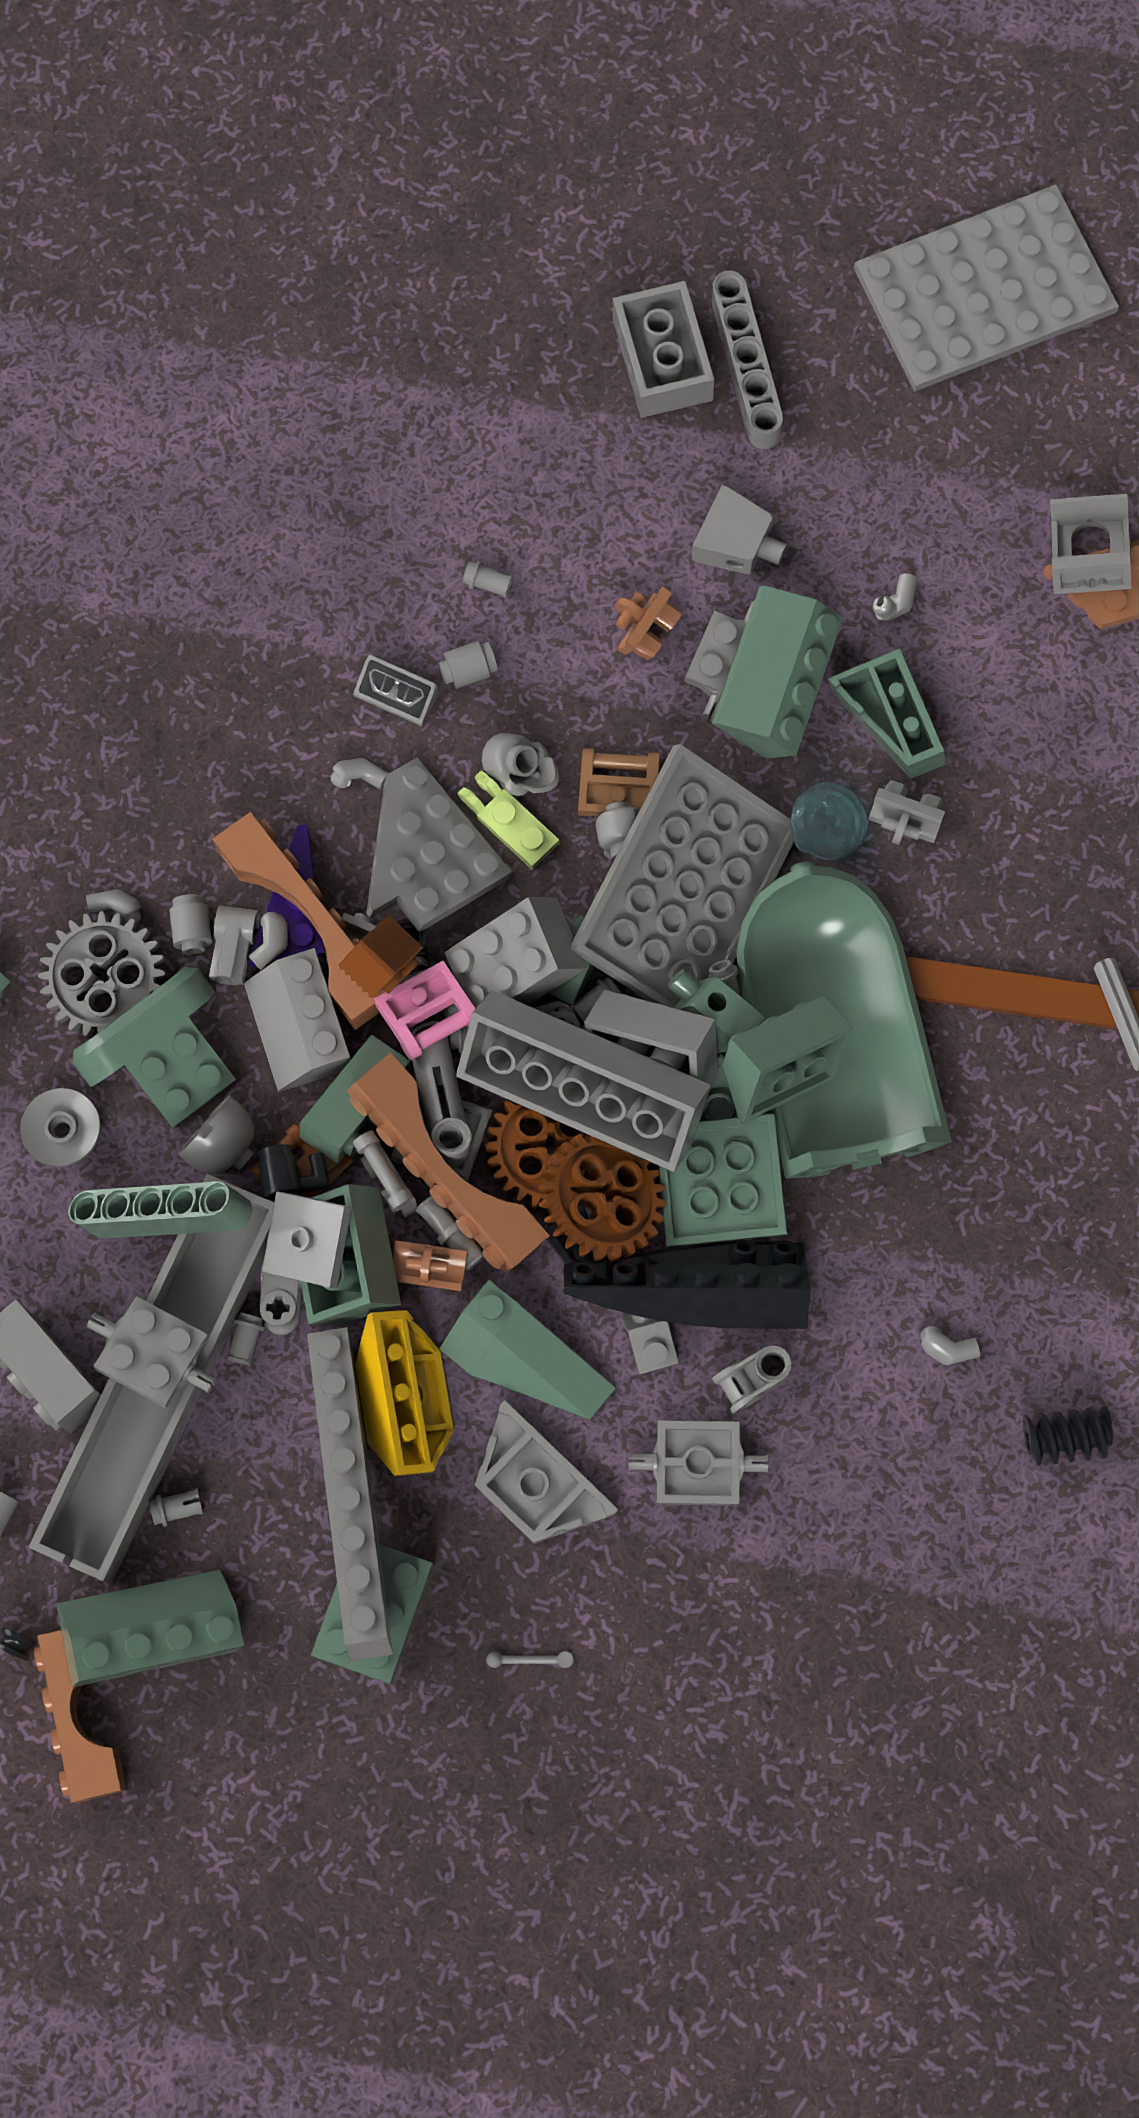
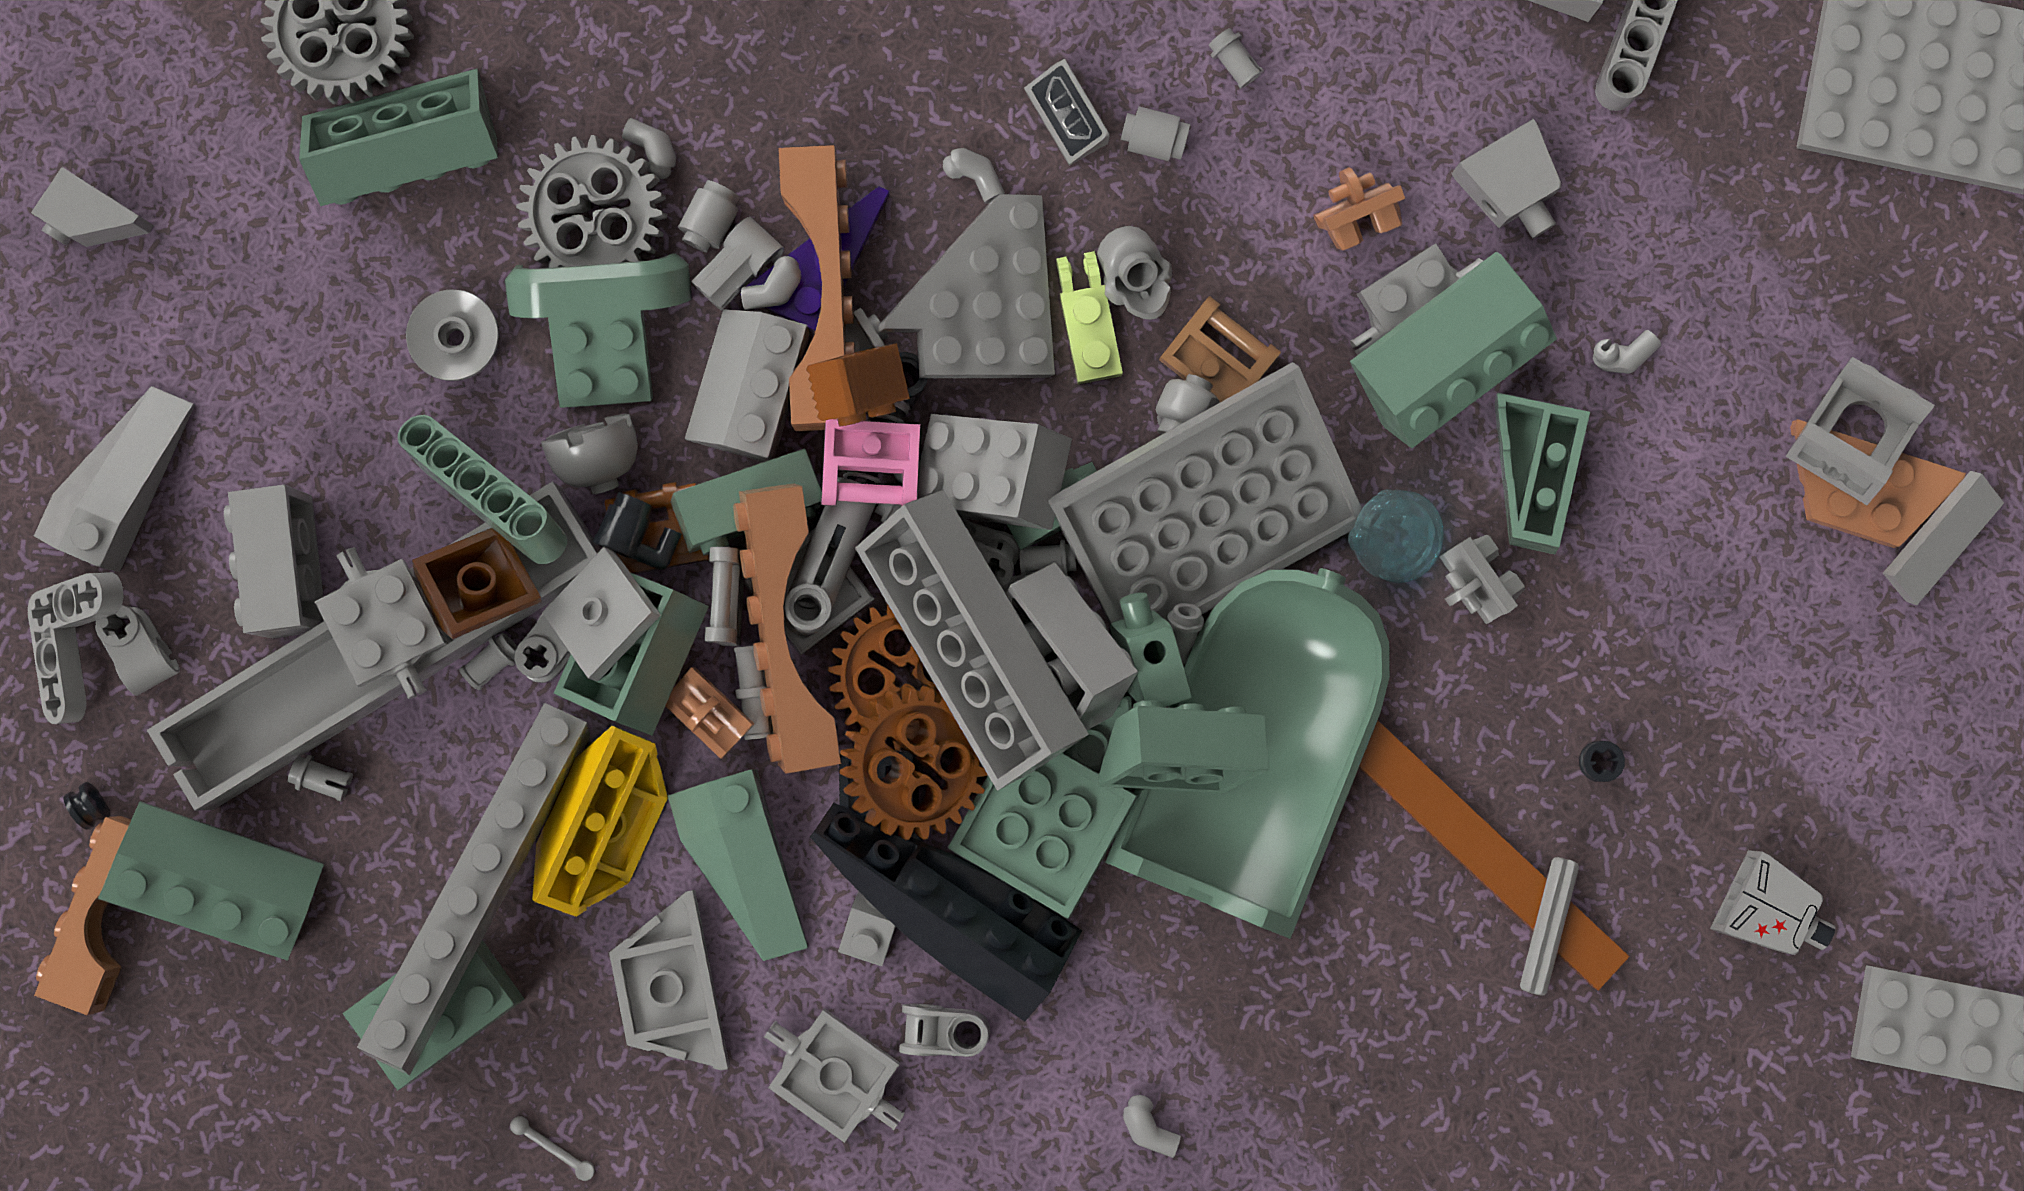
camera: 25 degrees right, 10 degrees up
(199, 1278) = (474, 583): none -> reddish brown slope
(1070, 890) = (1600, 747): none -> black bush

